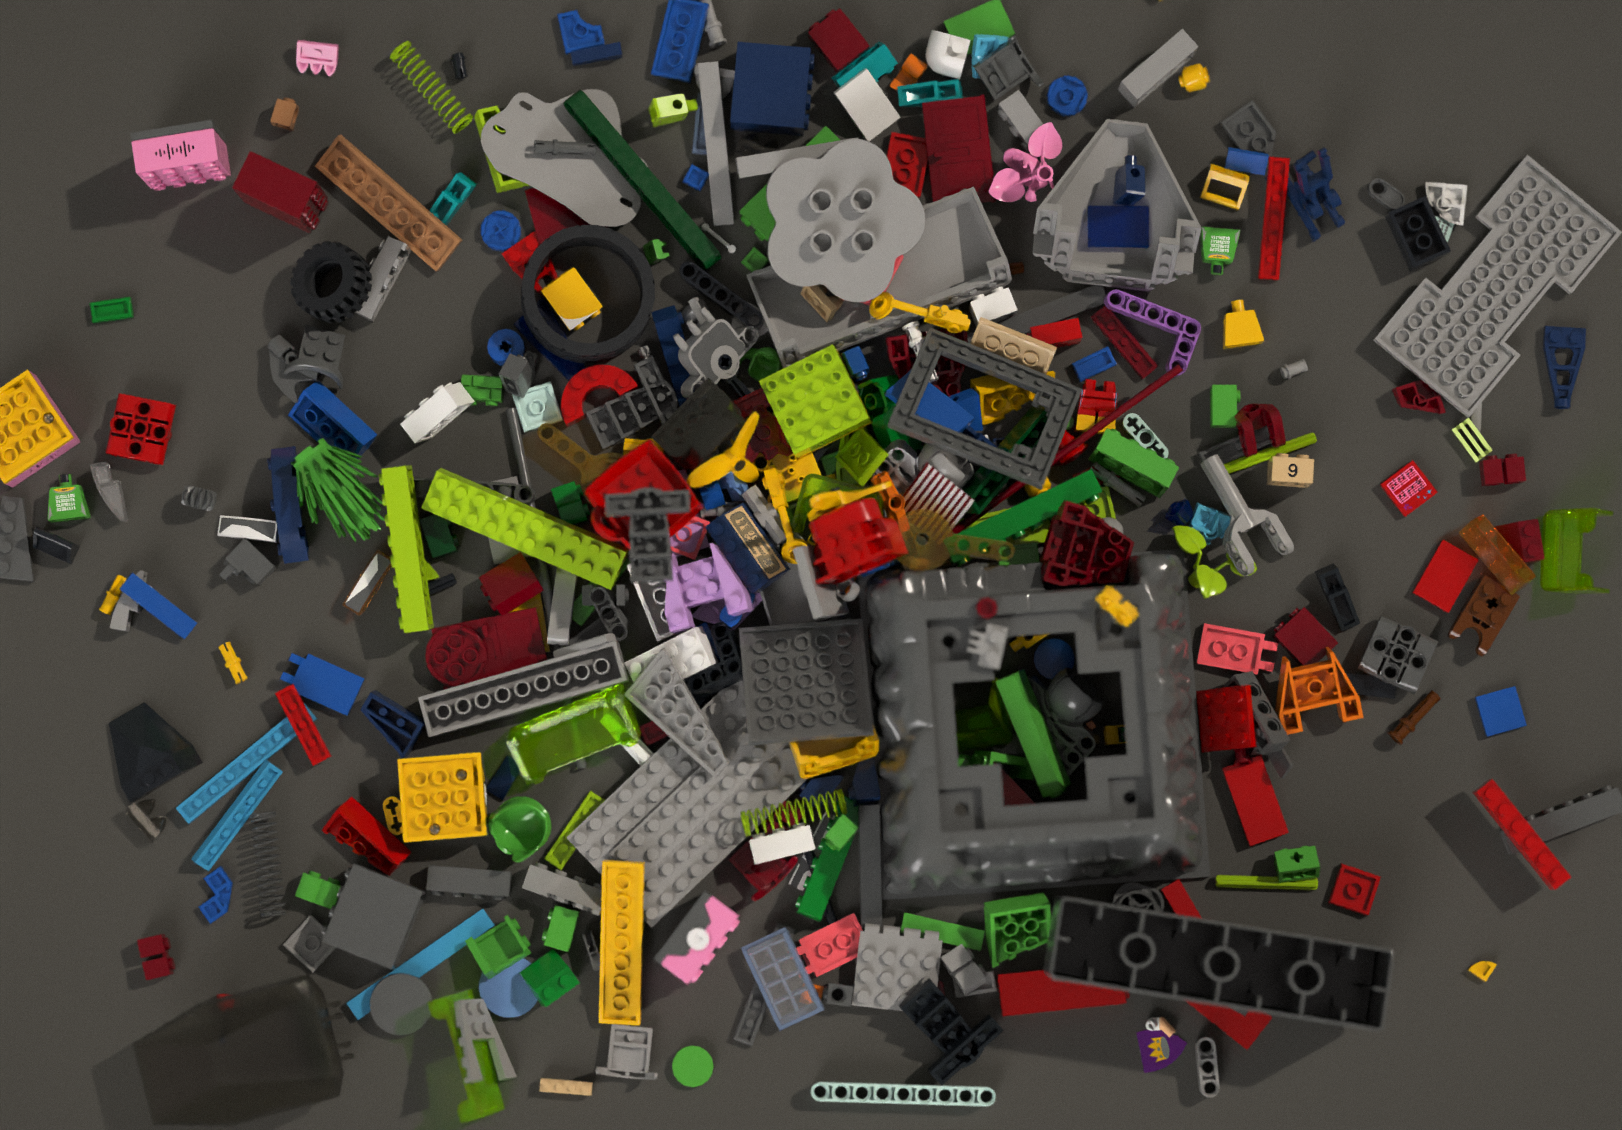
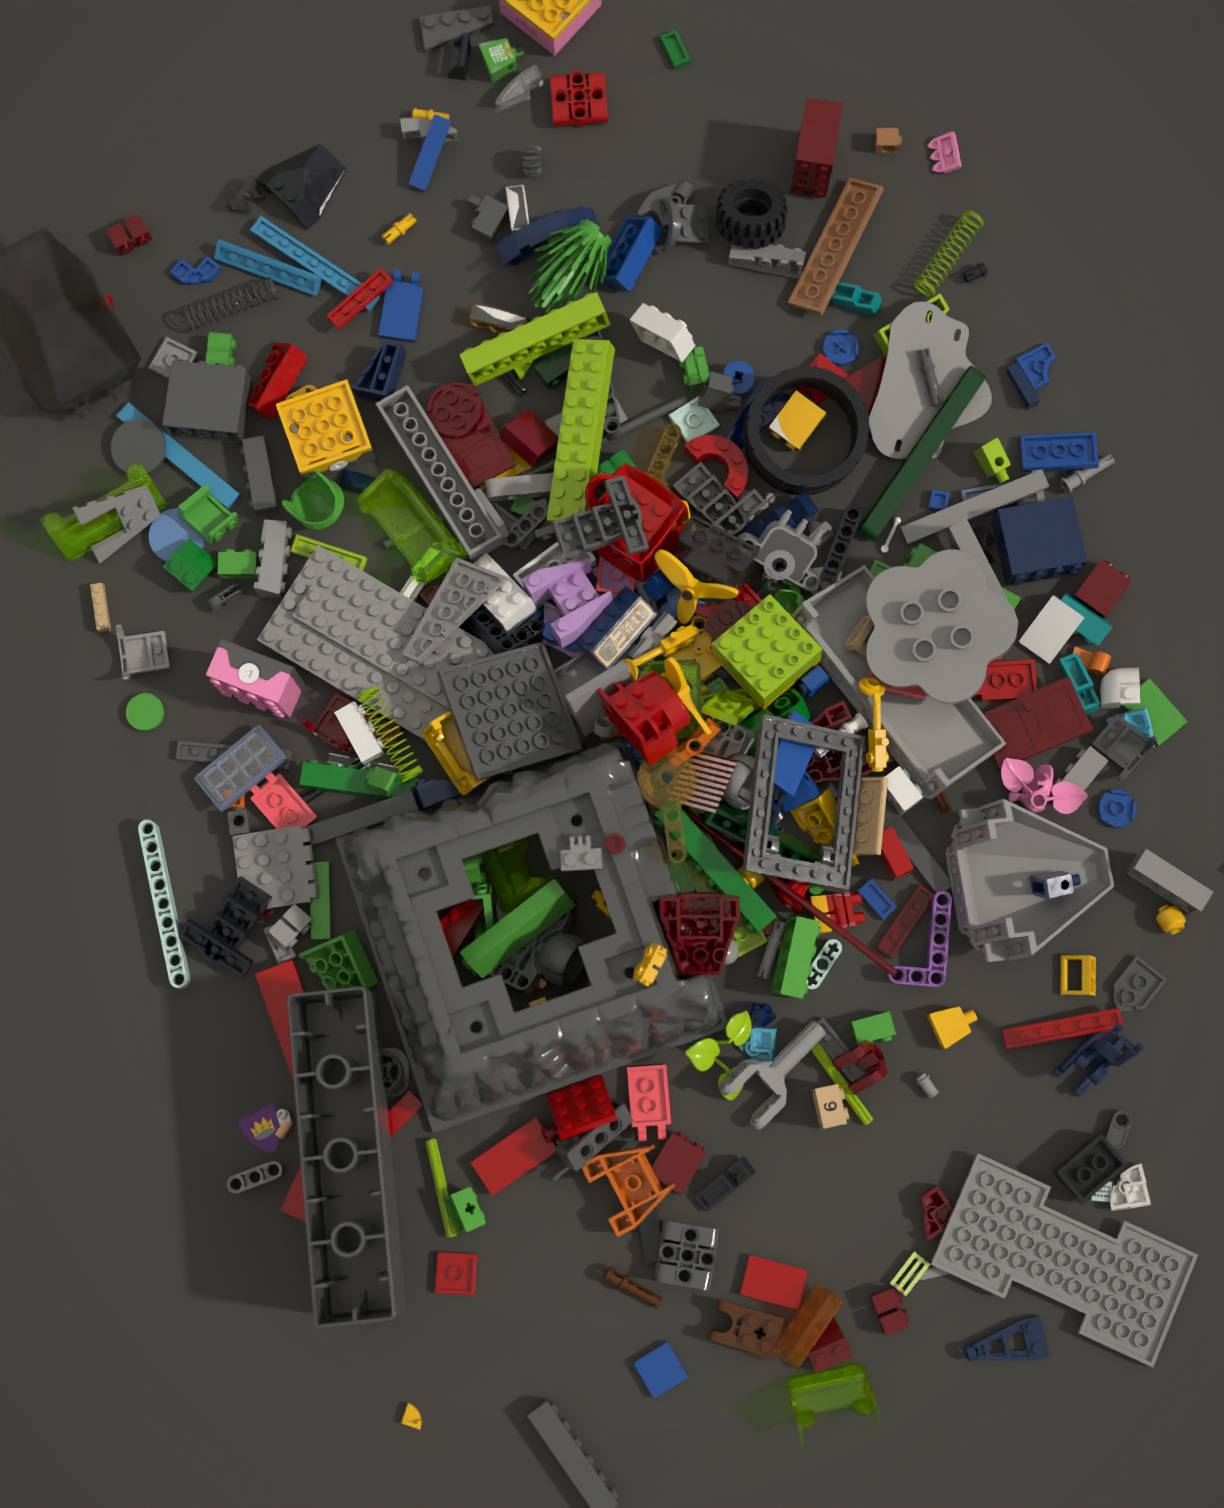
camera: 75 degrees right, 5 degrees down
(180, 155) = (824, 55): bright pink piece -> none
(621, 942) = (237, 616): yellow plate -> none
(654, 252) = (860, 481): bright green tile -> none
(821, 786) = (420, 753): dark blue slope -> none
(1052, 657) = (594, 928): blue tile -> none
(1118, 227) = (1010, 886): clear blue piece -> none
(1218, 247) = (1019, 984): bright green torso -> none
(1246, 161) = (1108, 989): blue tile -> none
(1408, 488) = (846, 1224): red tile -> none
(1521, 834) = (546, 1420): red brick -> none

